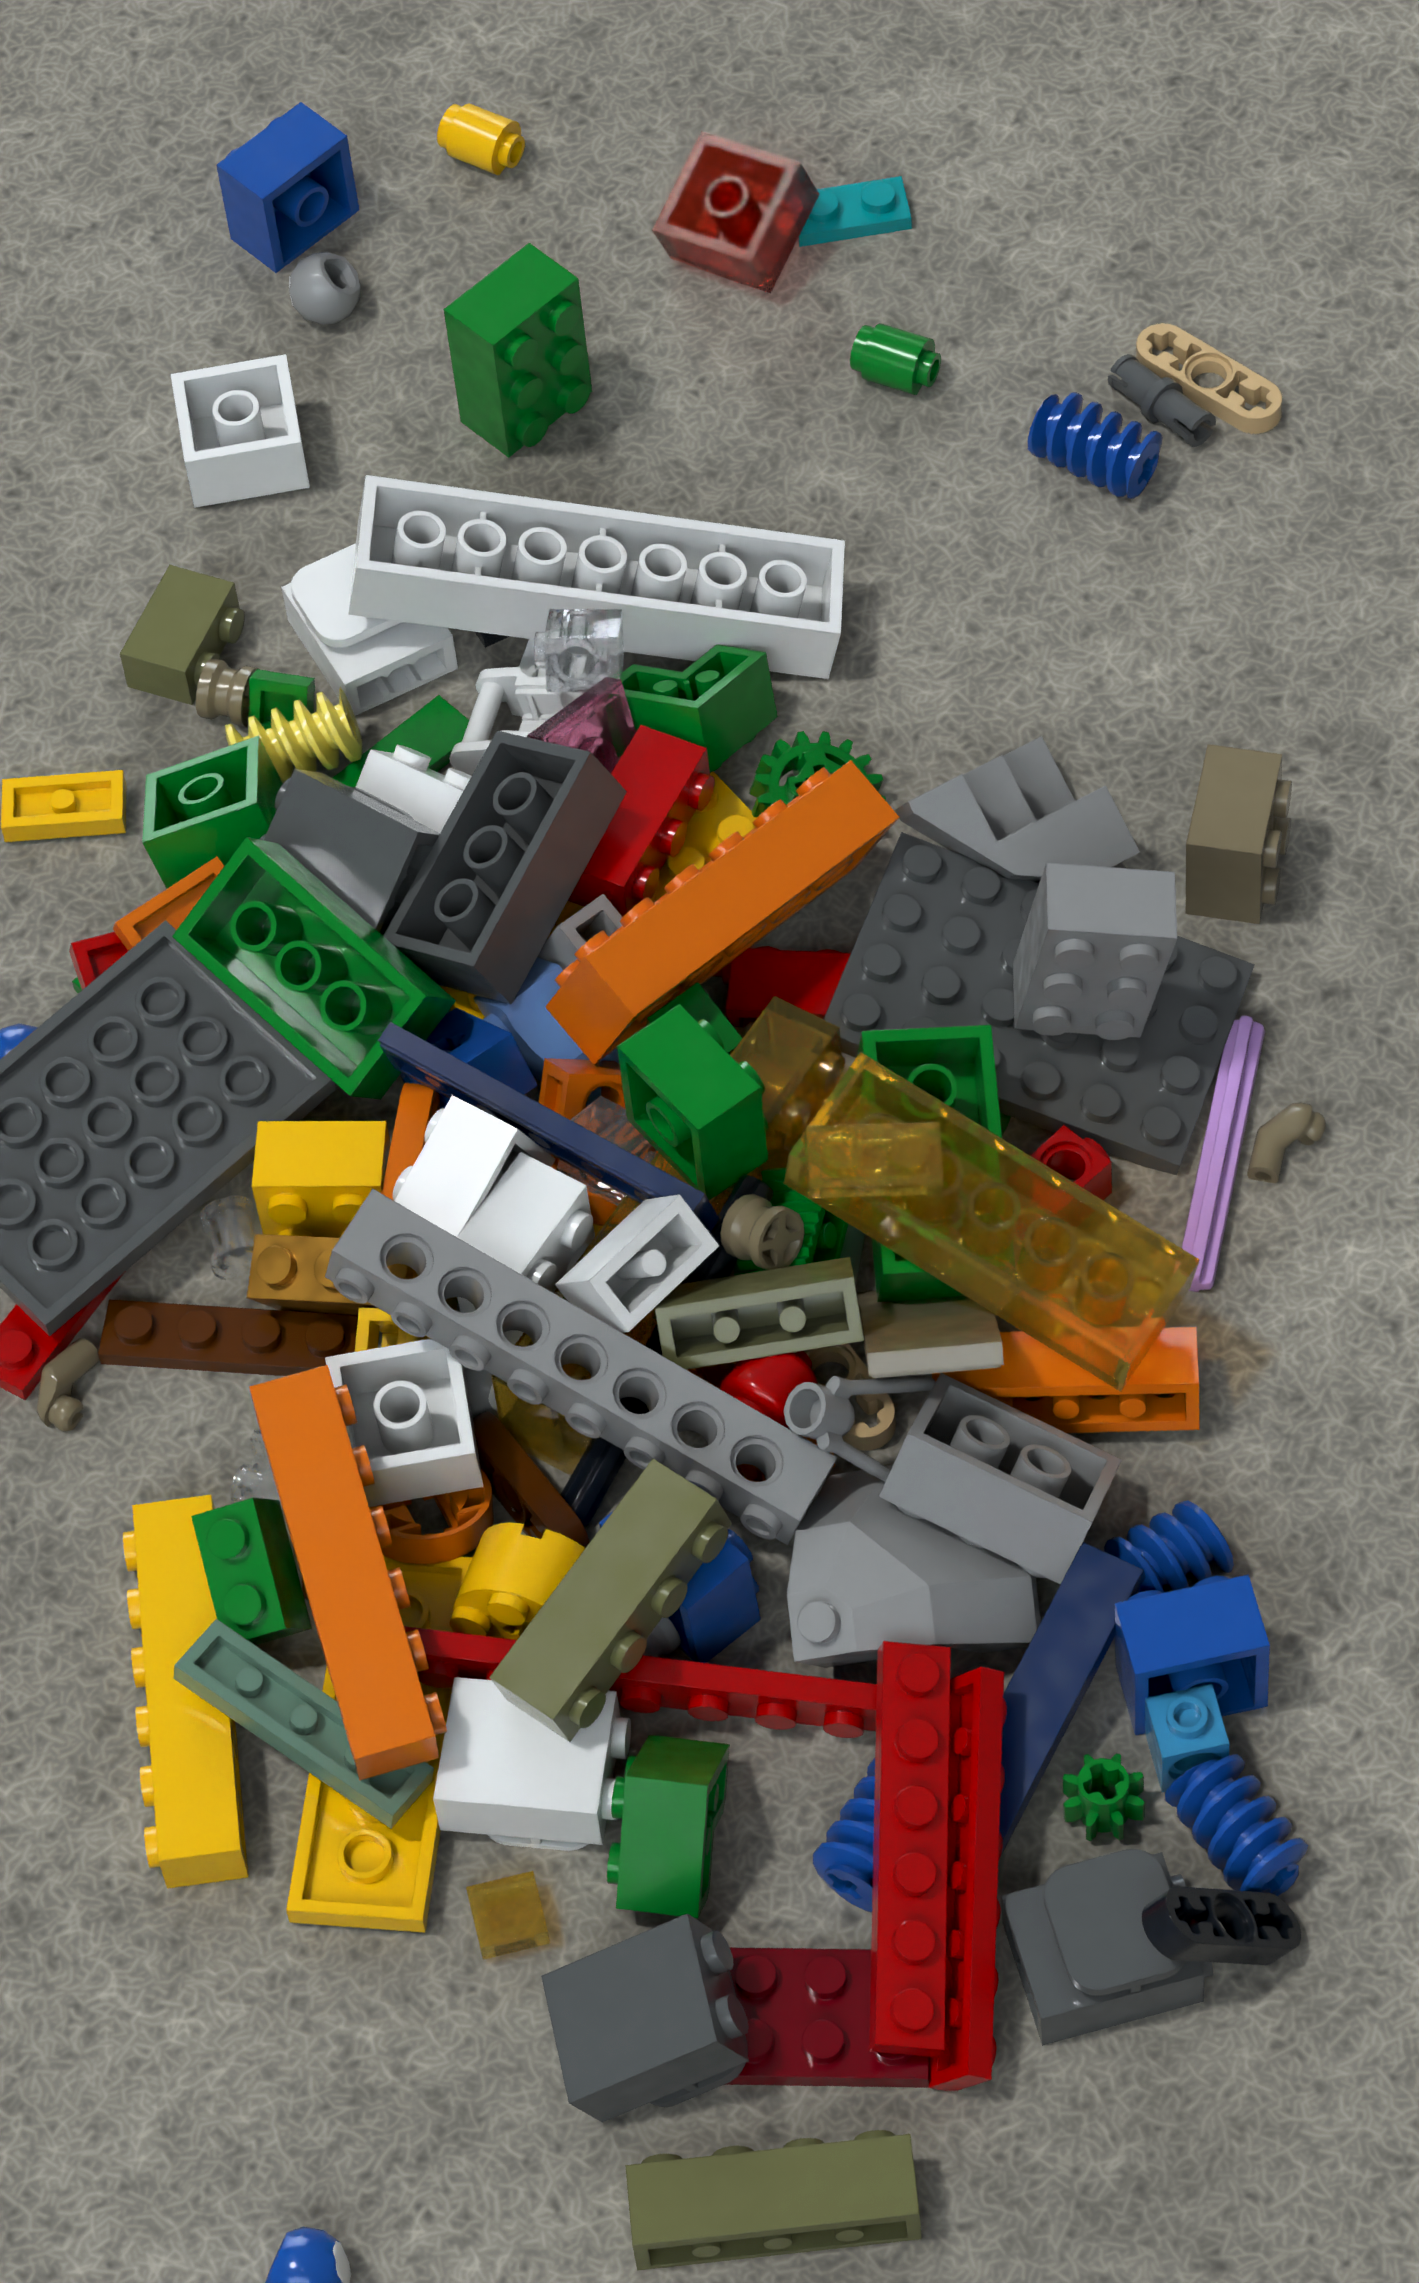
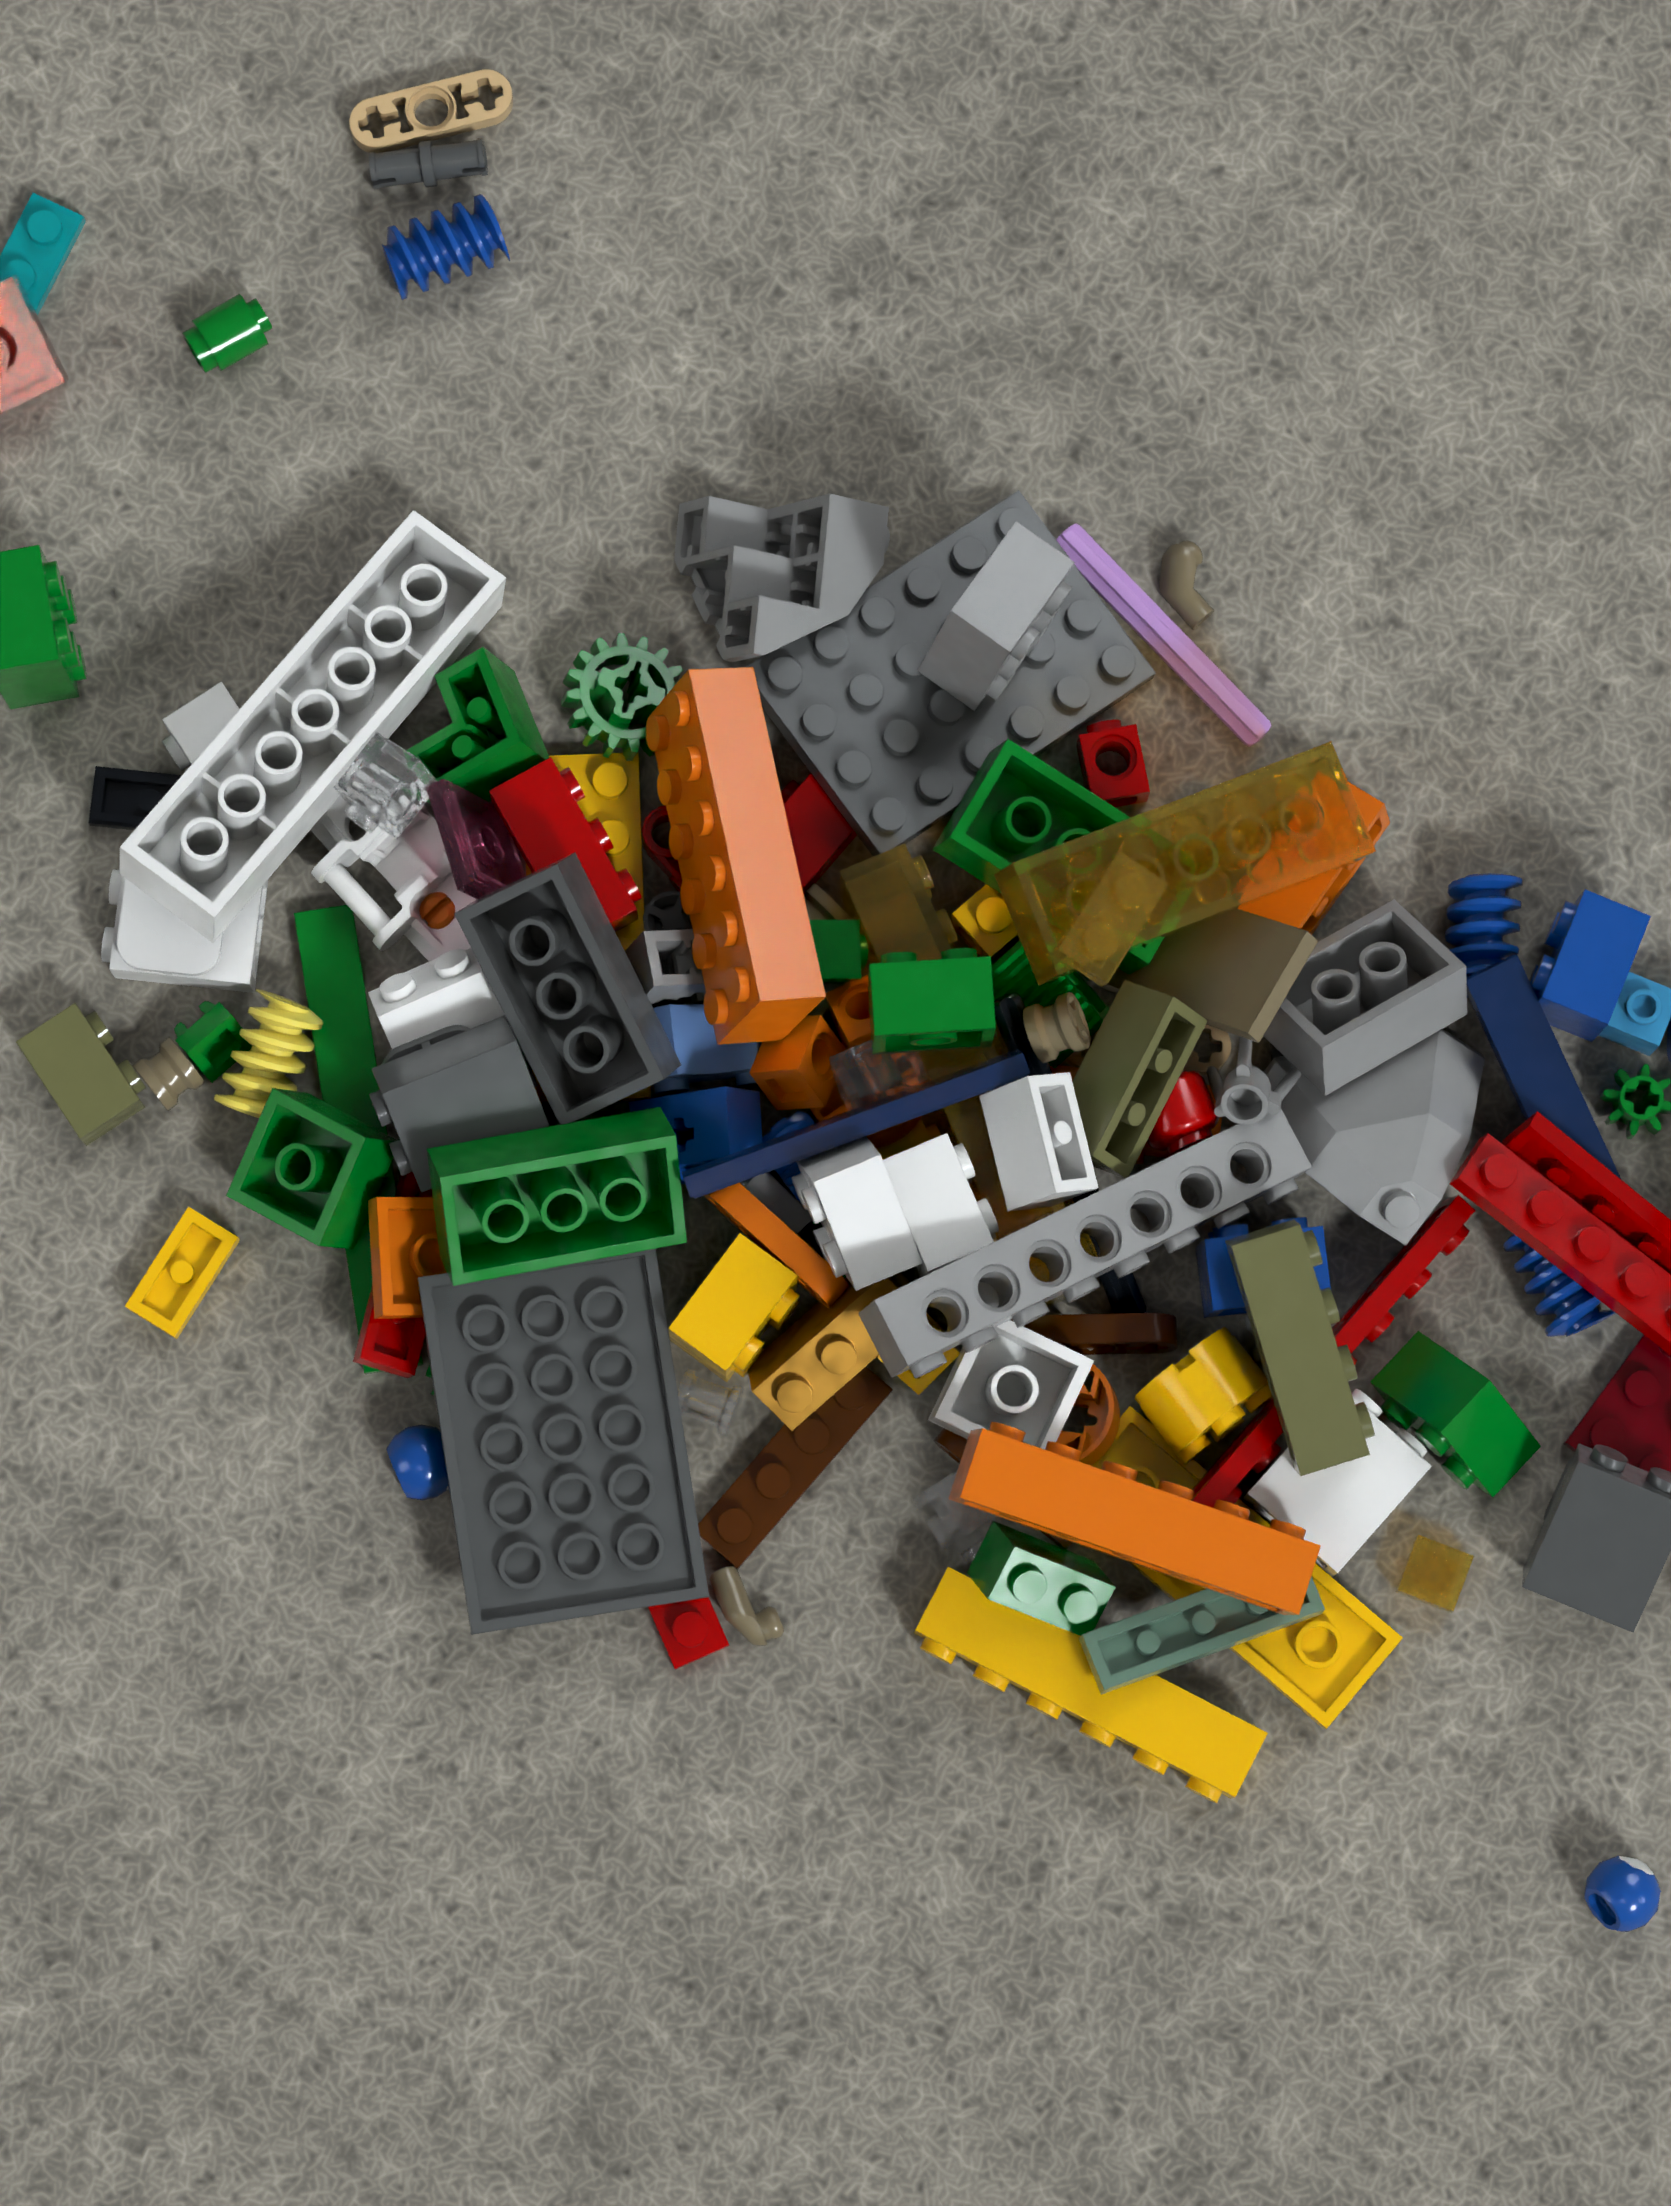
camera: 65 degrees left, 25 degrees up
(1237, 834) = (913, 422): dark tan brick -> none

